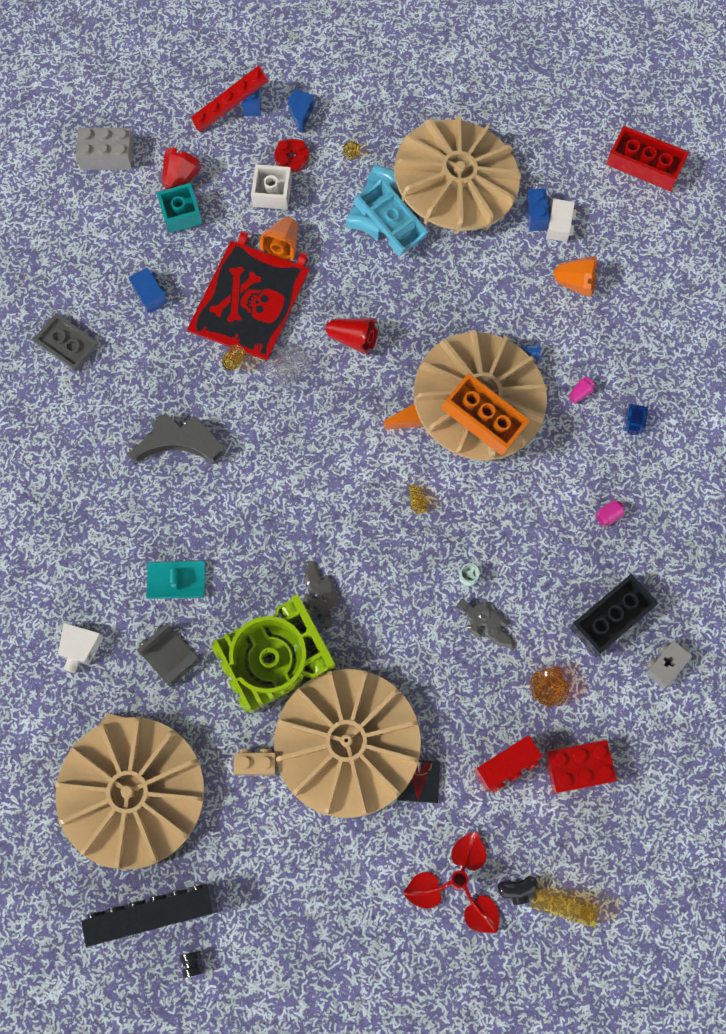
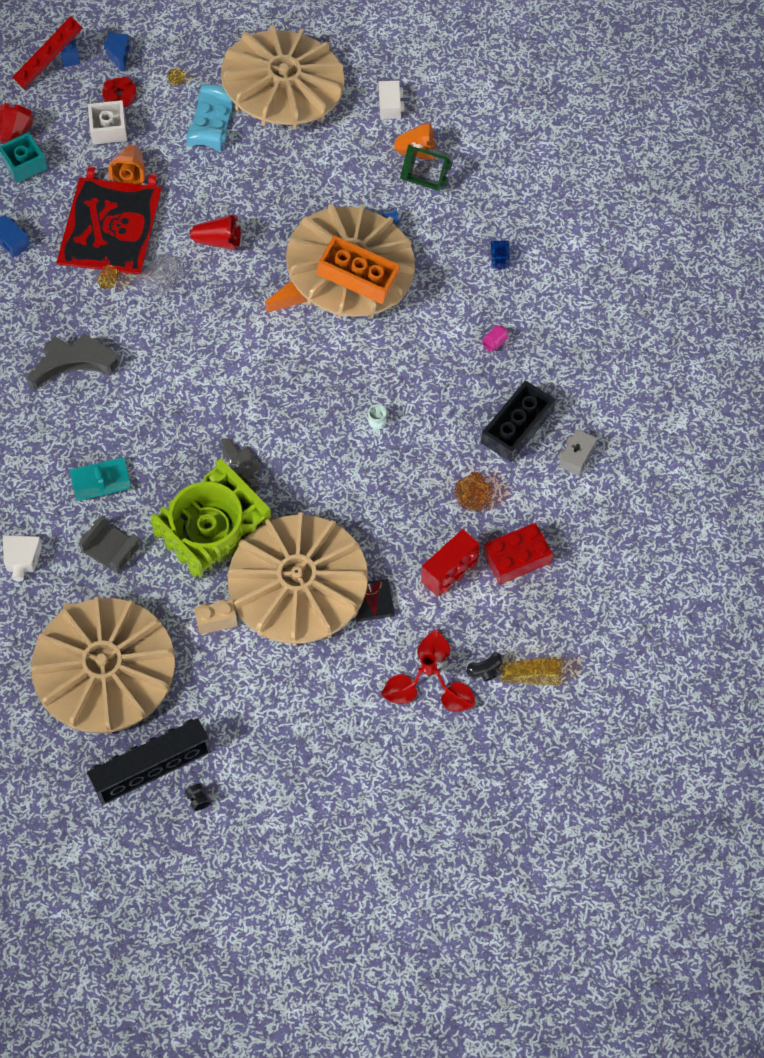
camera: 15 degrees left, 10 degrees down
(391, 216) = (230, 125): medium azure piece -> none
(417, 499) = (314, 365): clear yellow cone -> none
(493, 621) = (409, 452): dark grey piece -> none
(537, 209) = (366, 94): blue brick -> none
(571, 317) = (409, 161): none -> dark green window
(581, 390) = (444, 240): dark pink cone -> none
(647, 158) = (458, 31): red brick -> none

